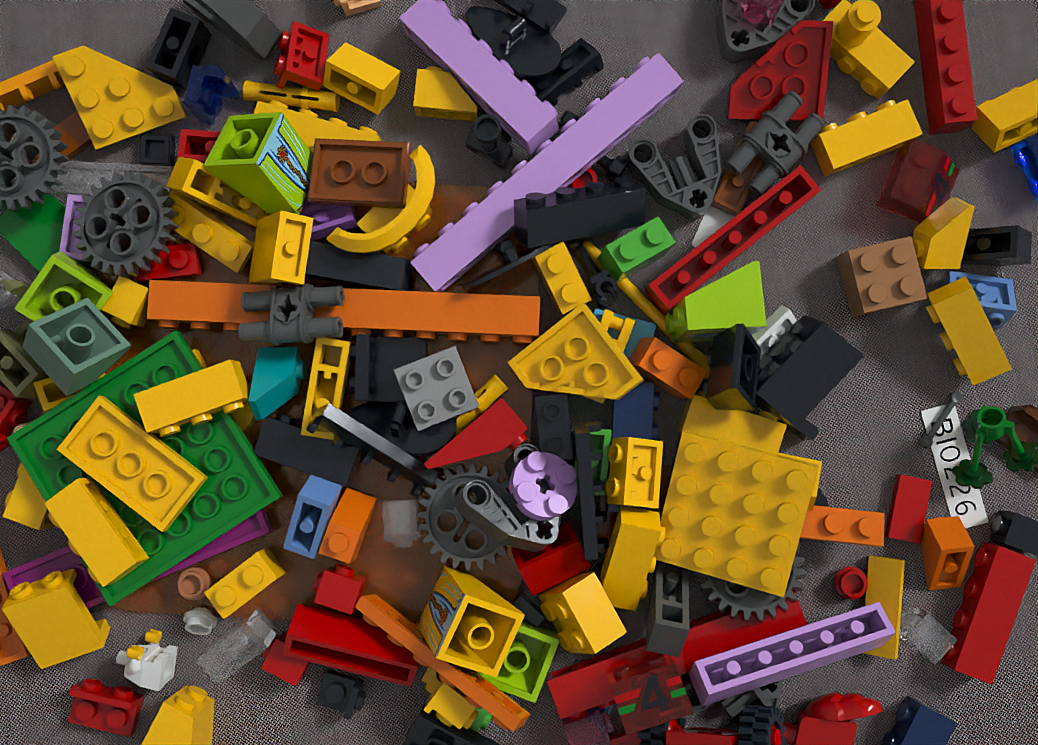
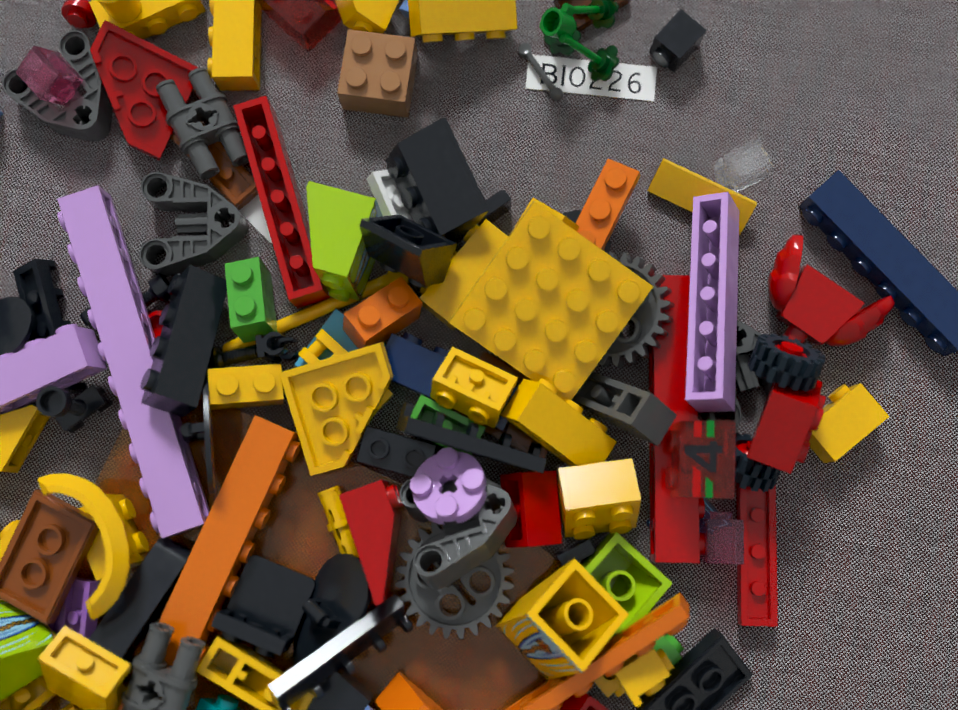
camera: 70 degrees left, 5 degrees down
(401, 521) = (432, 654): clear brick -> none
(436, 388) = (304, 561): light grey hinge -> none
(850, 582) = (667, 218): red plate -> none
(908, 508) = (615, 136): red tile -> none
(945, 552) = (670, 117): orange slope -> none
(988, 611) = (741, 99): red brick -> none

